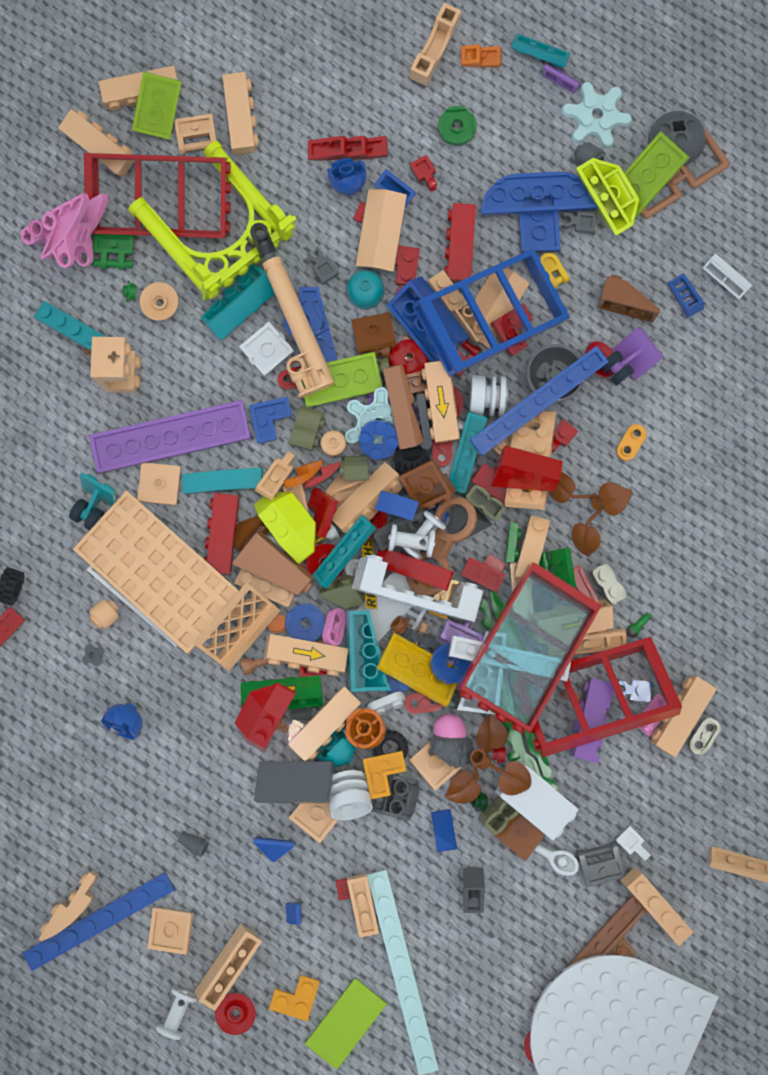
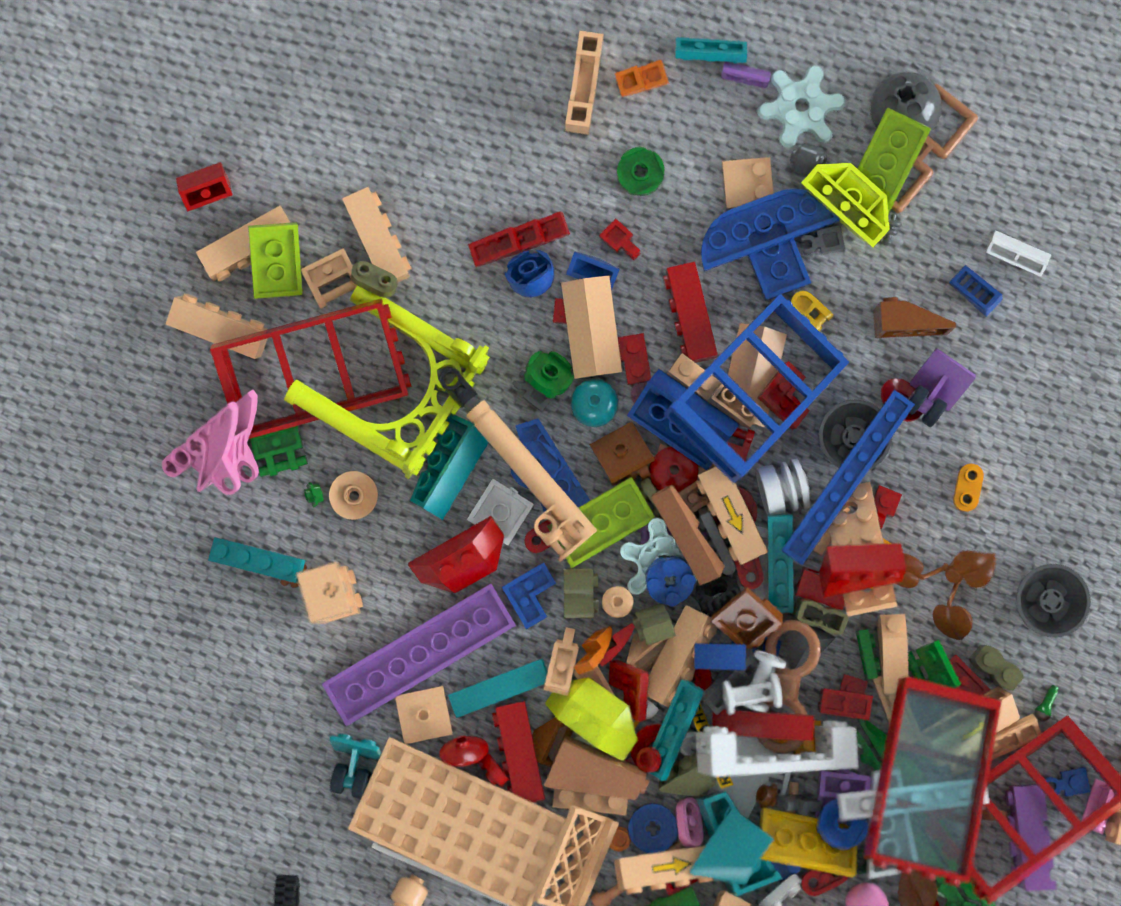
camera: 15 degrees left, 0 degrees up
(121, 34) = (204, 186): none -> red brick
(179, 518) = (463, 751): none -> red dish
(197, 540) = (495, 773): none -> red plate
(225, 141) = (373, 279): none -> olive plate
(225, 374) = (461, 558): none -> red wedge
(318, 568) = (648, 759): none -> red tile
(328, 251) = (544, 383): none -> green plate
(358, 655) = (732, 850): none -> teal slope
(536, 156) = (746, 180): none -> light nougat plate
(634, 229) = (892, 224): none -> dark grey hair
(679, 545) = (1066, 597): none -> dark grey piece

